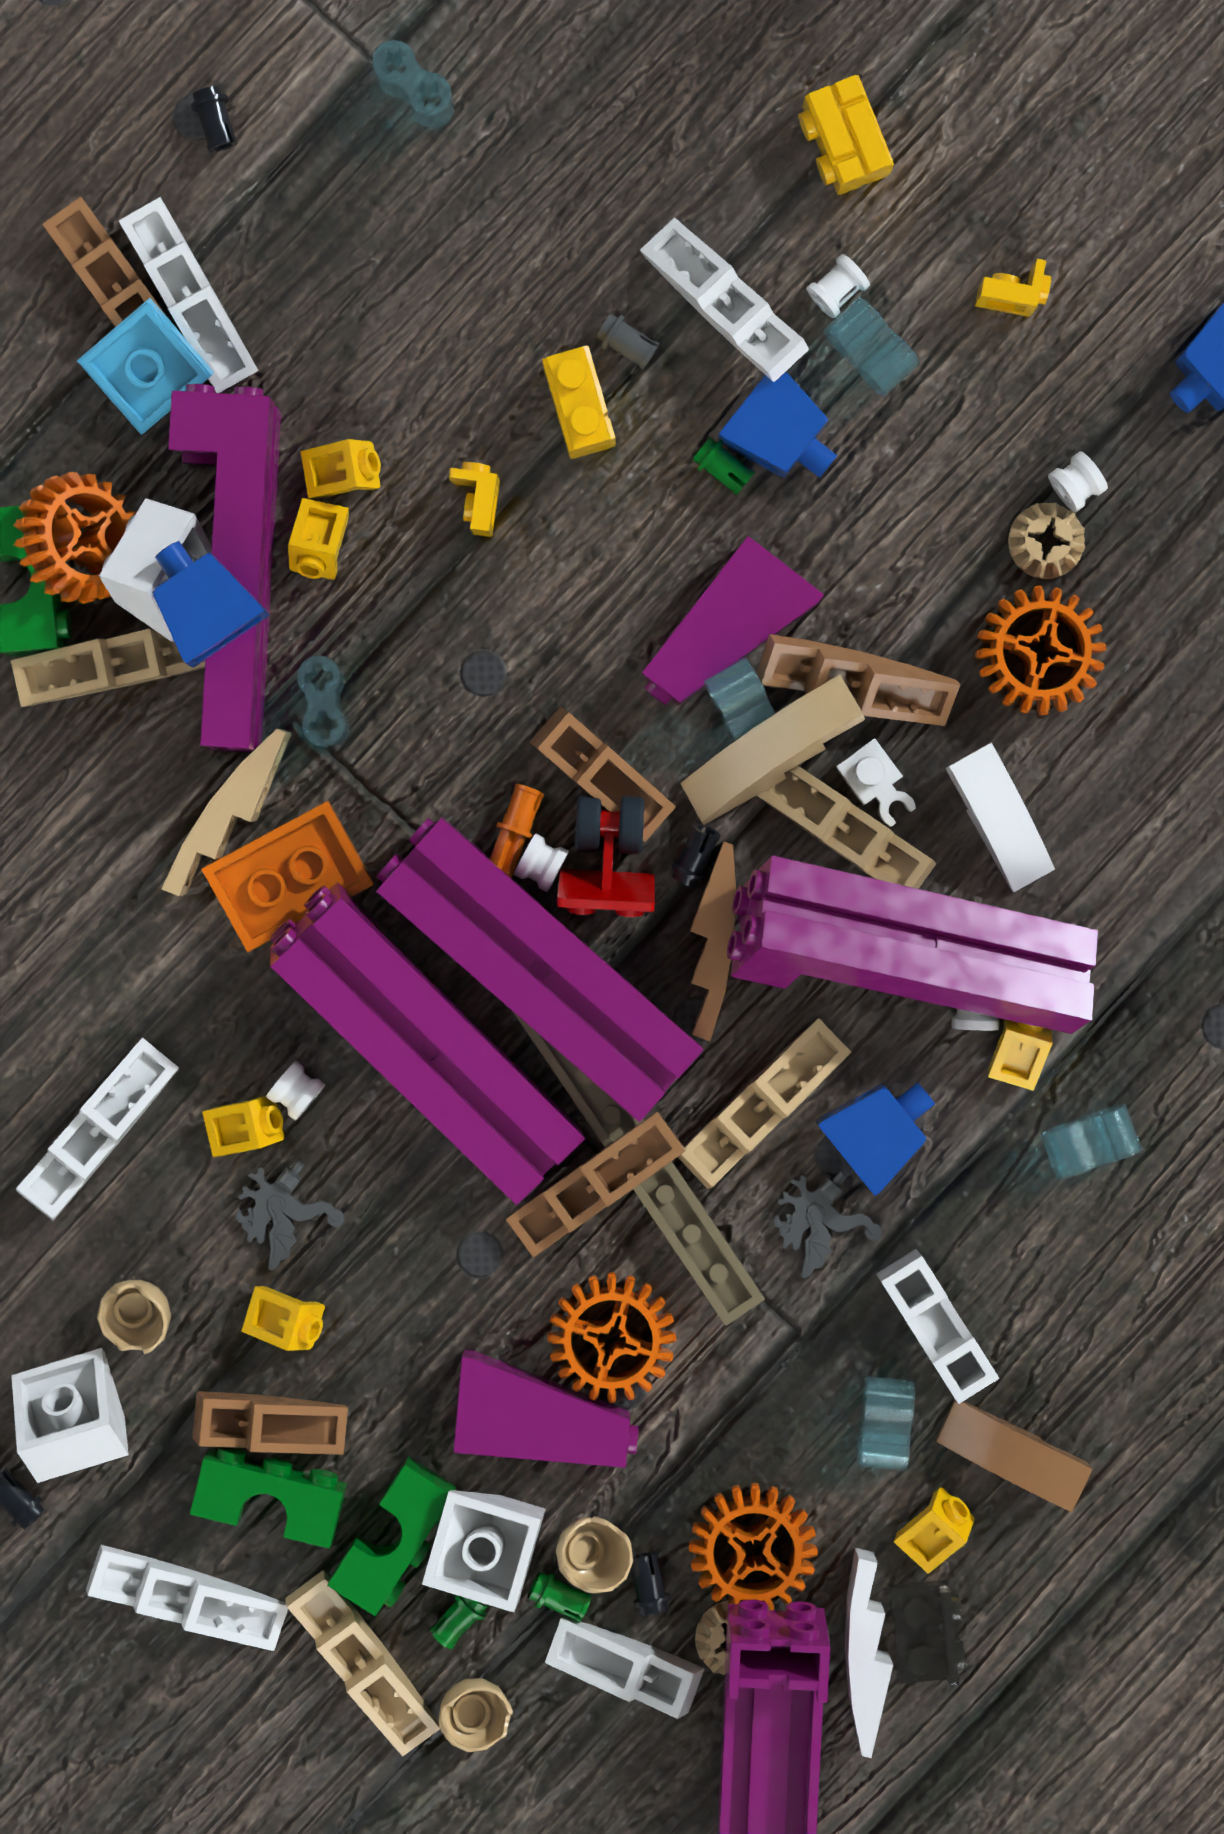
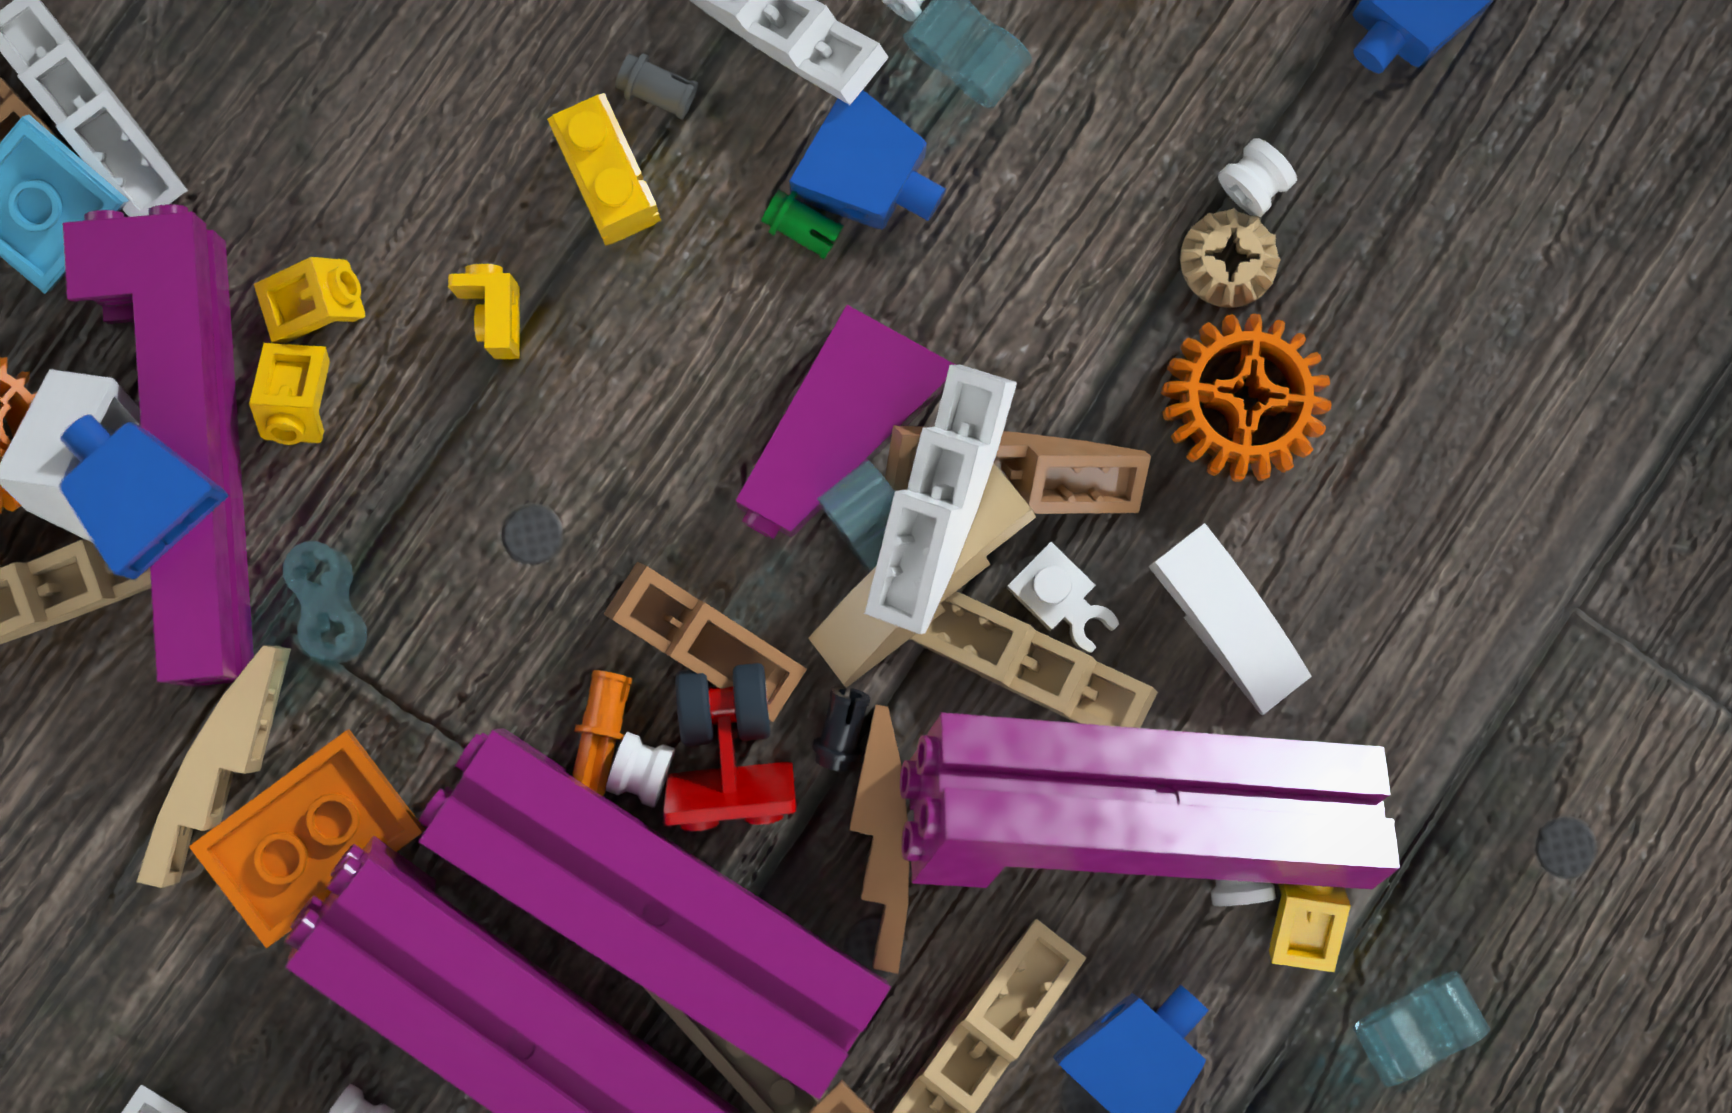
camera: 20 degrees left, 5 degrees down
(797, 695) = (941, 500): none -> white slope

